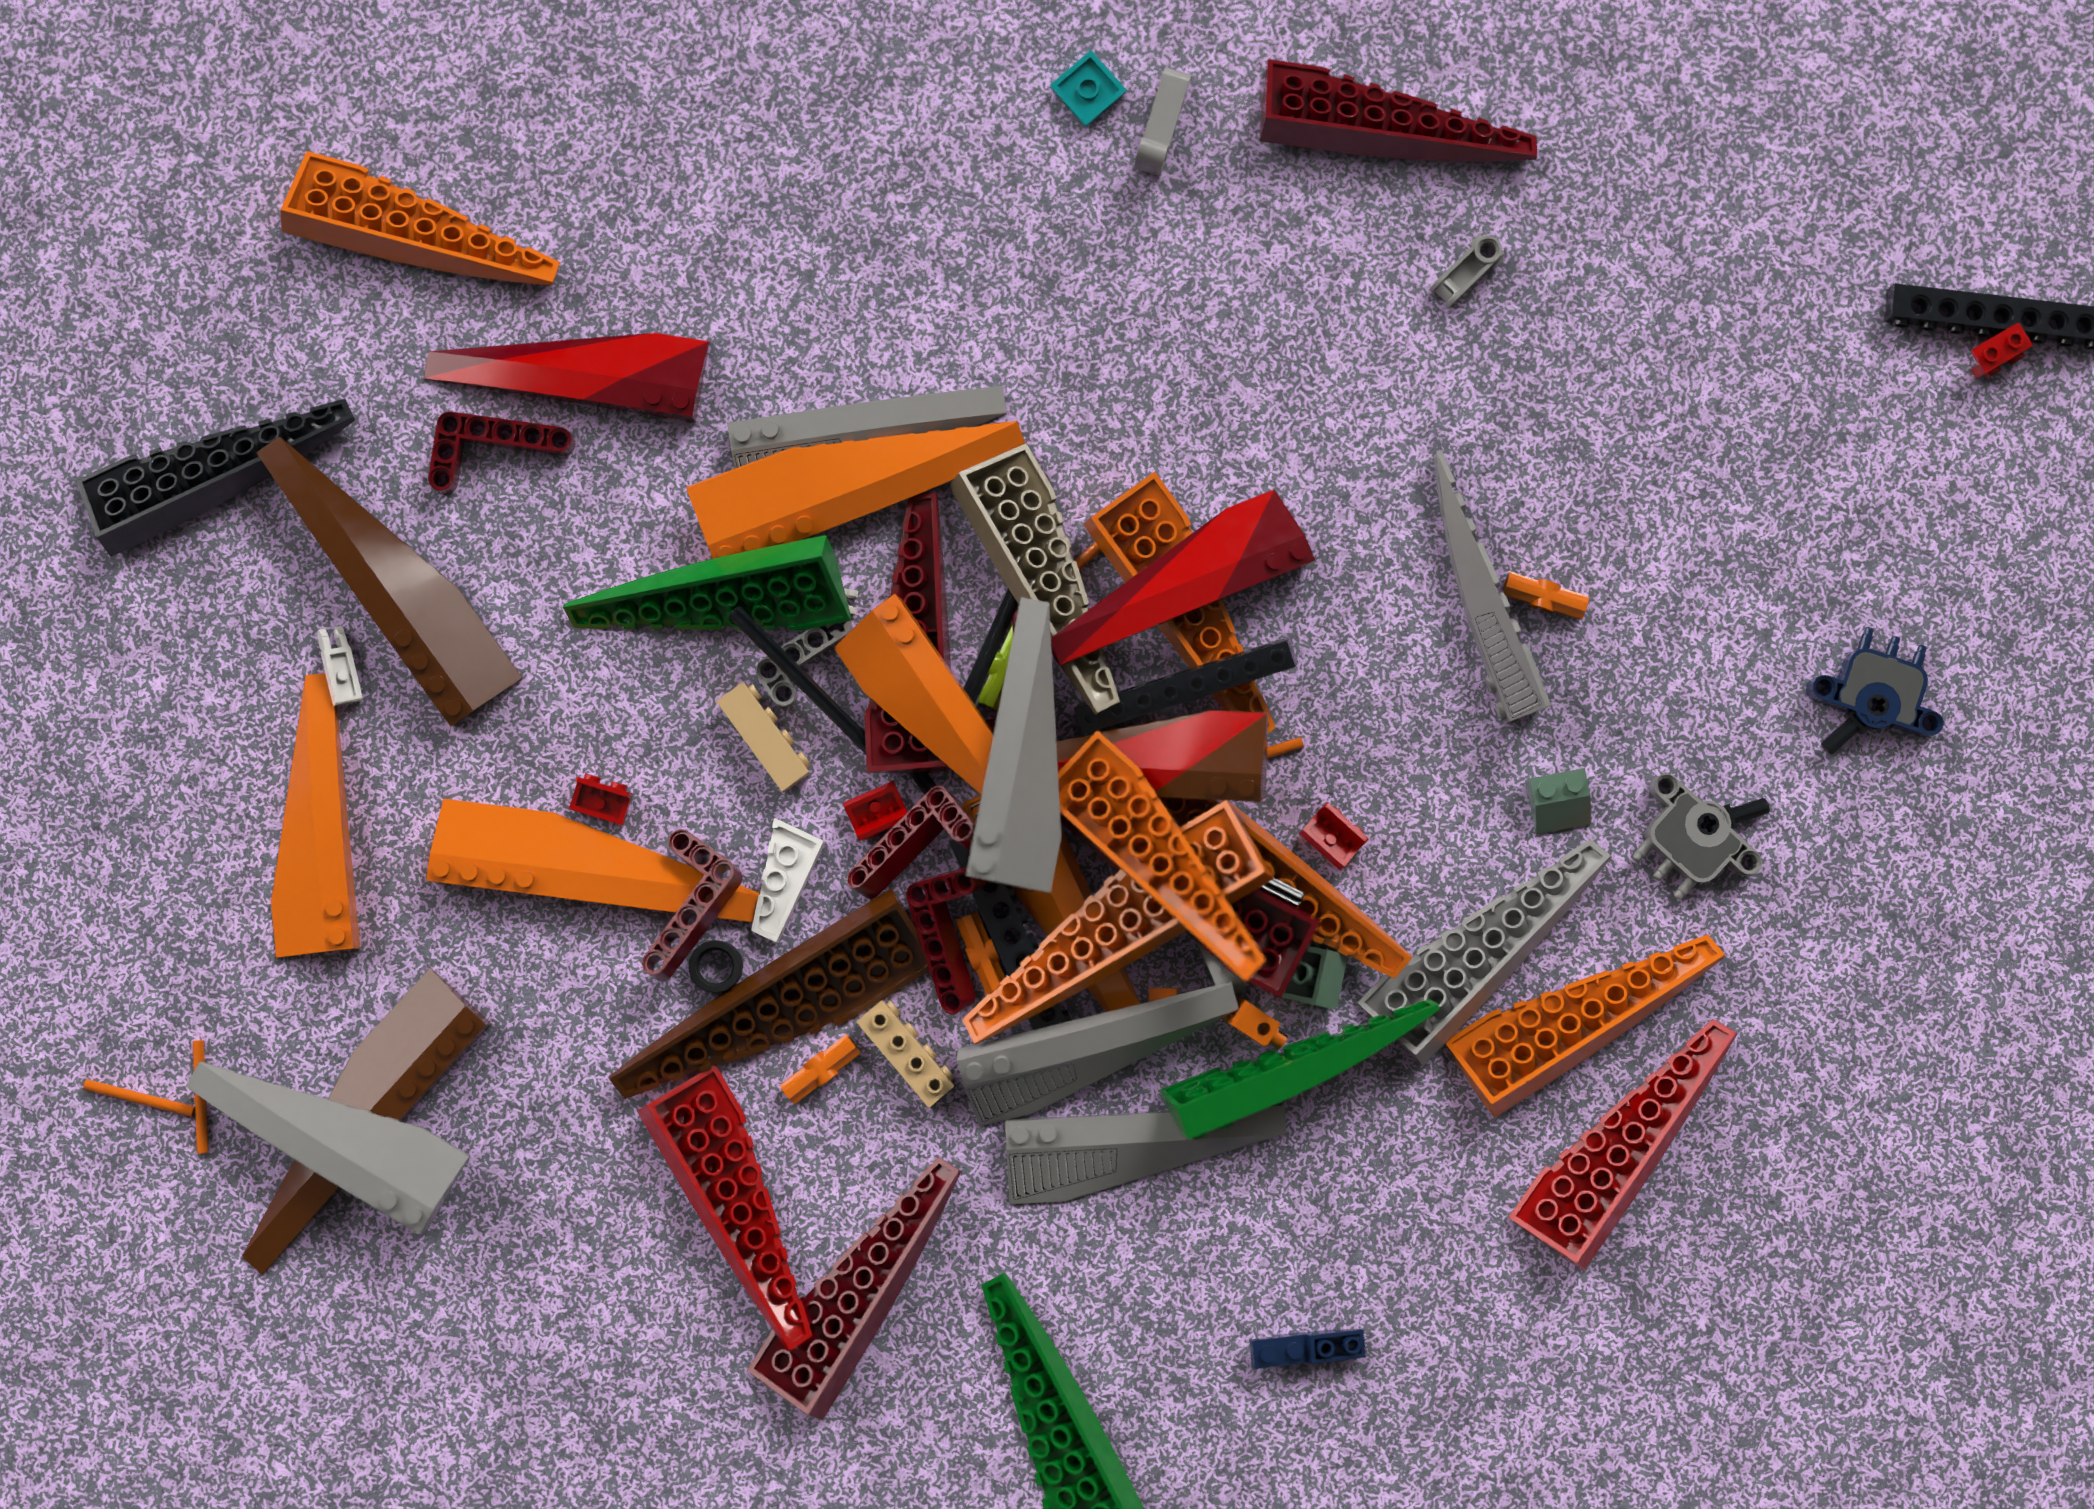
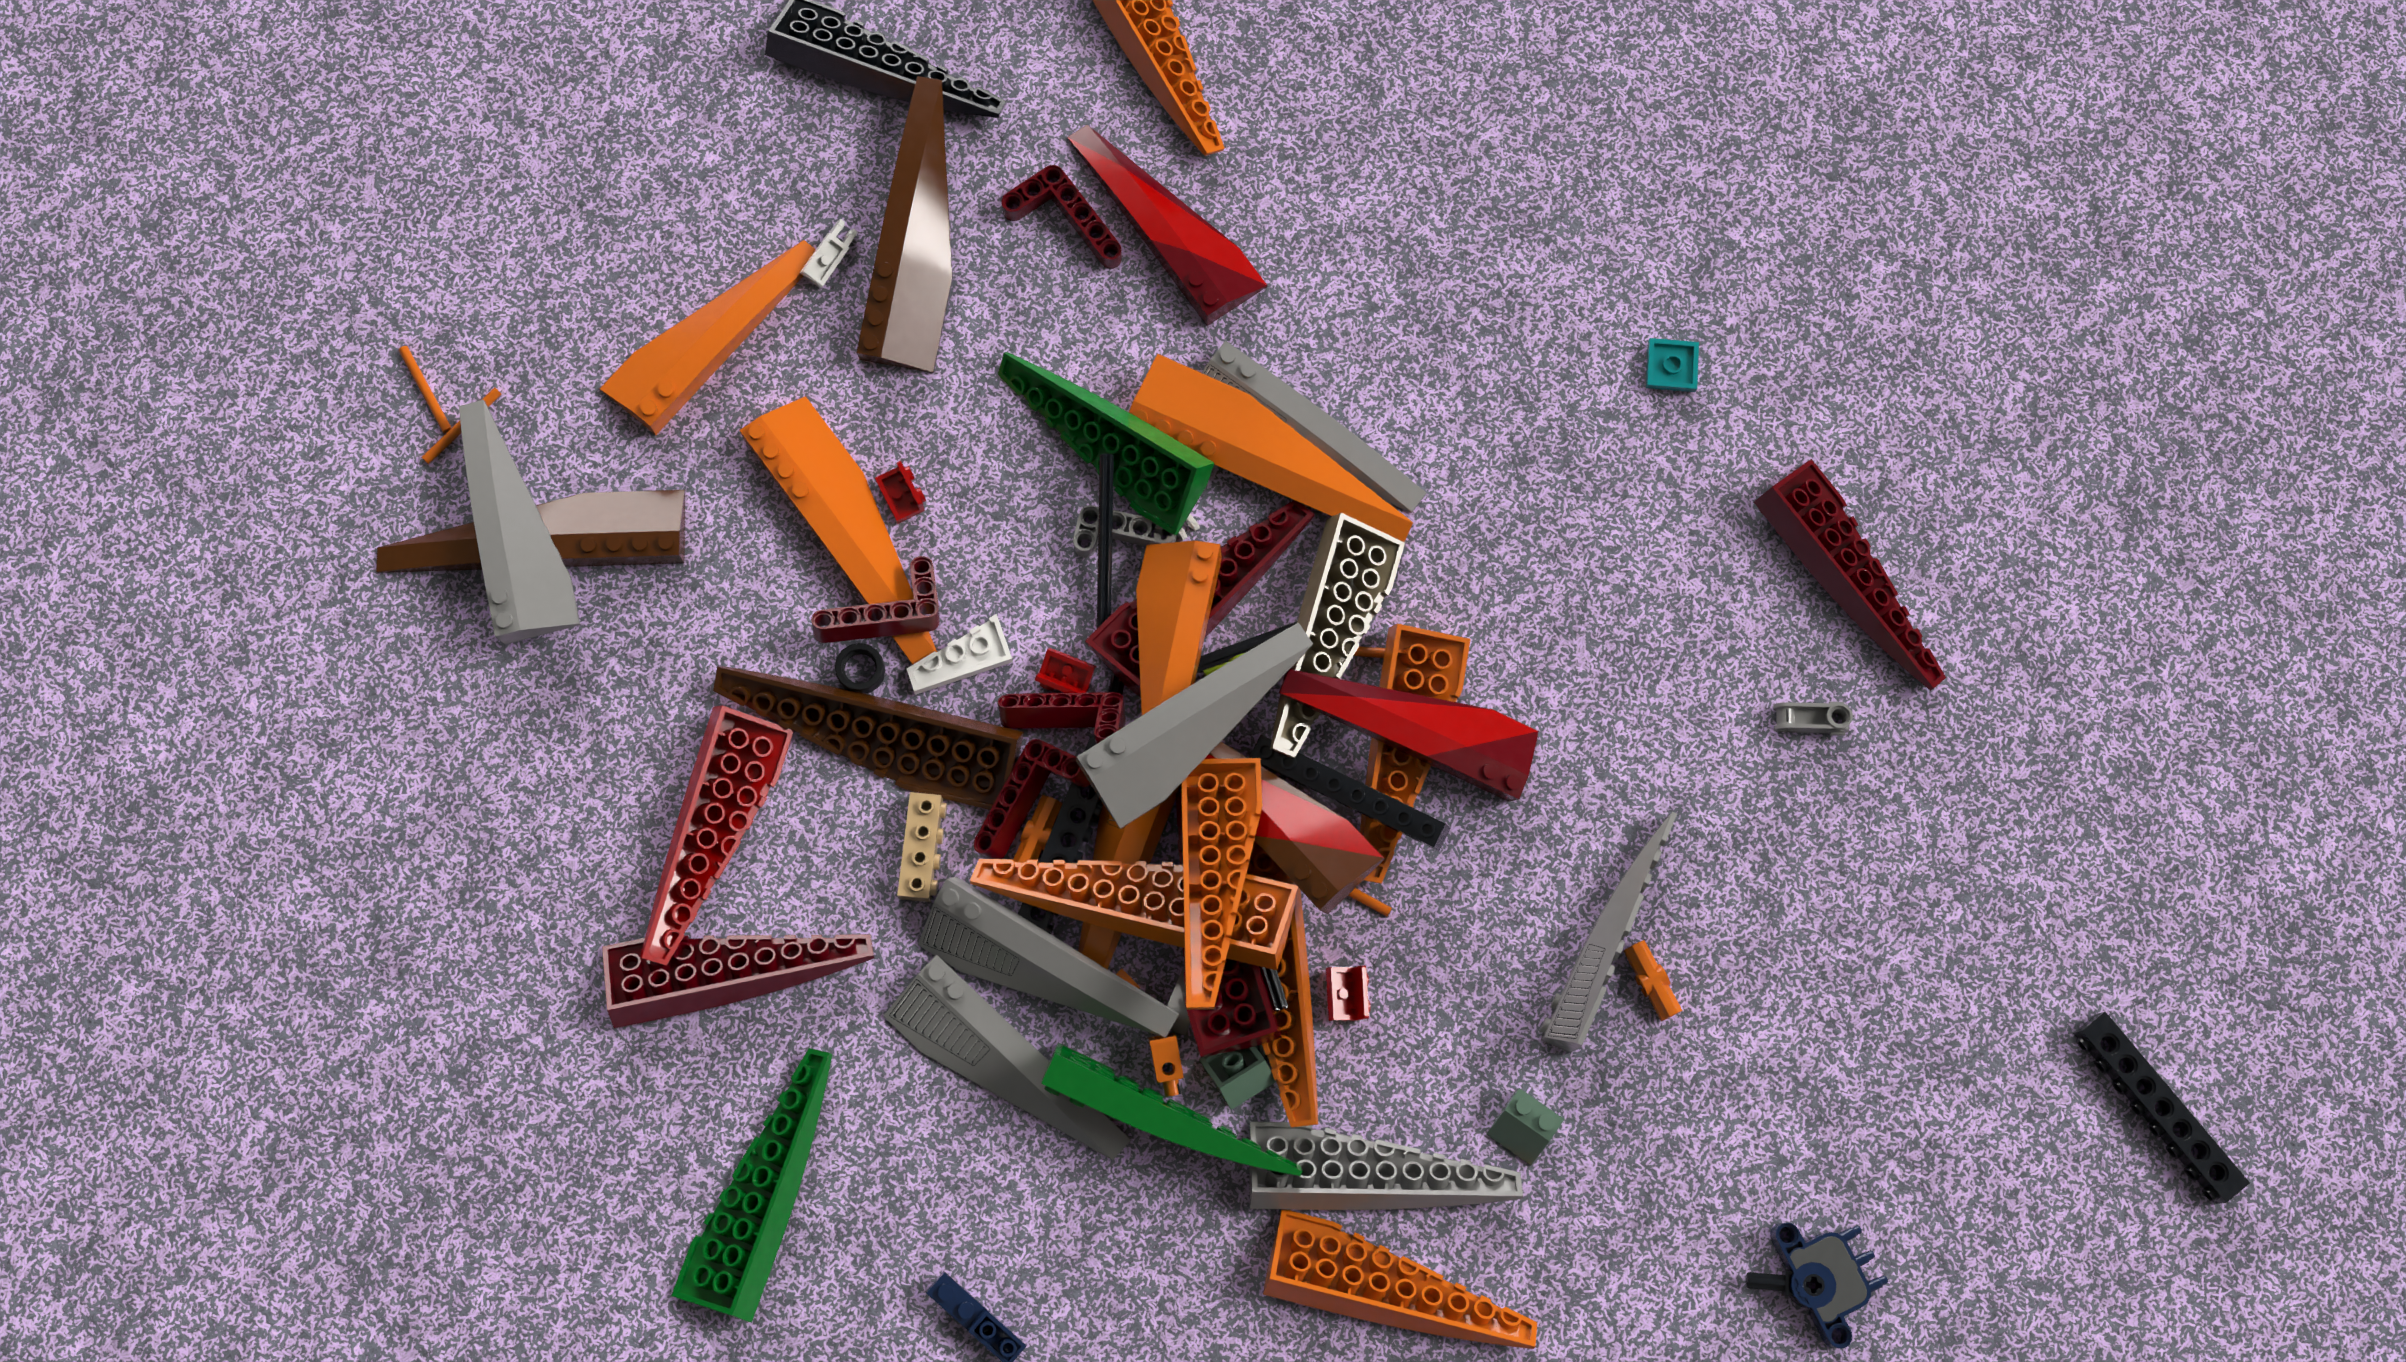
camera: 45 degrees right, 10 degrees down
(763, 736) = (1043, 556): tan brick -> none
(820, 1069) = (855, 800): orange piece -> none
(1162, 122) = (1679, 440): light grey beam -> none
(1696, 851) = (1584, 1251): piece -> none
(1999, 349) = (2139, 1130): red bracket -> none

